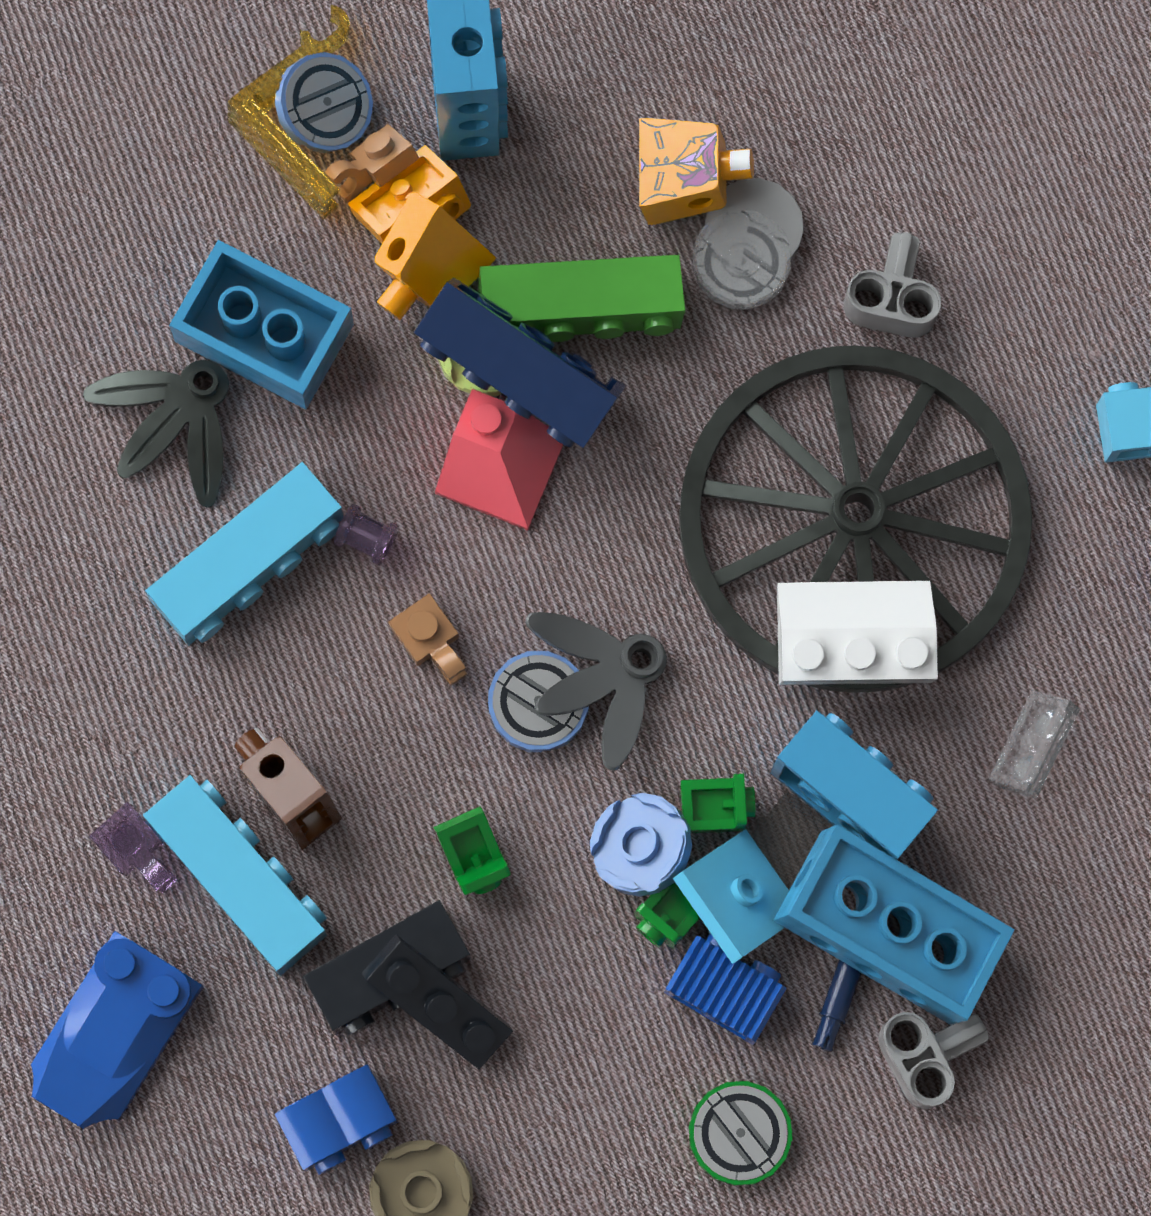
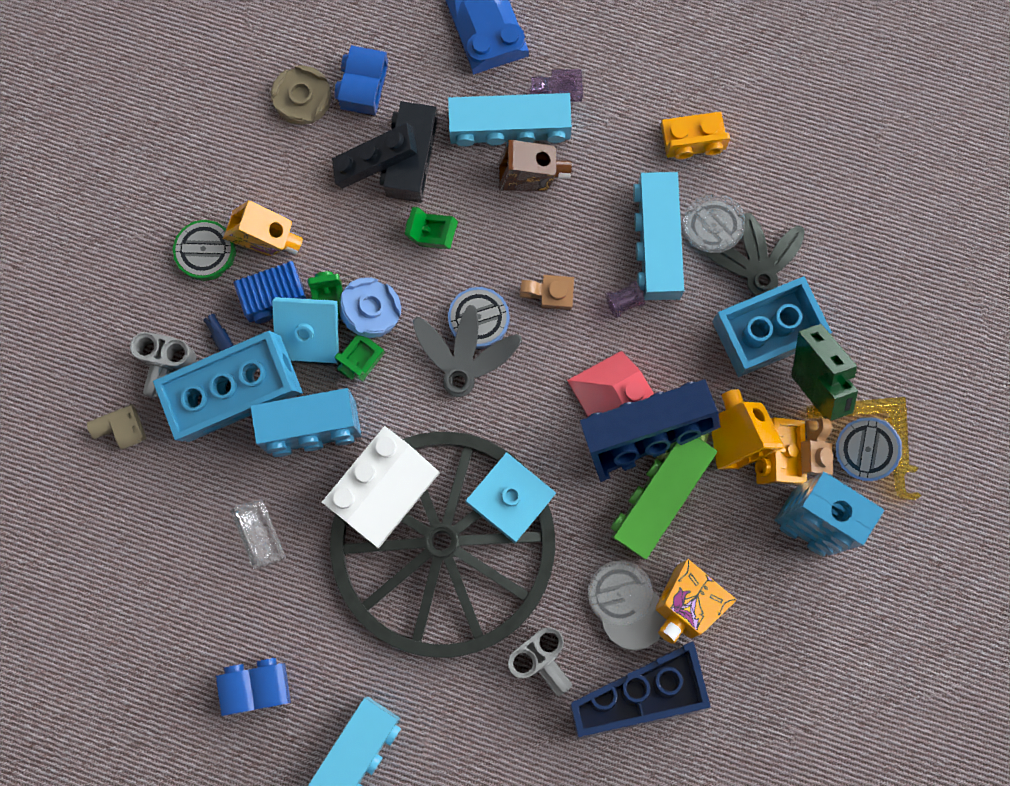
camera: 135 degrees right, 0 degrees up
(64, 620) = (694, 135): none -> light orange bracket
(171, 502) = (714, 223): none -> clear tile
(284, 205) = (824, 372): none -> dark green piece
(655, 1056) = (261, 230): none -> light orange torso
(736, 472) = (510, 497): none -> medium azure plate
(836, 139) = (648, 695): none -> dark blue wedge
(1047, 1037) = (123, 423): none -> dark tan piece

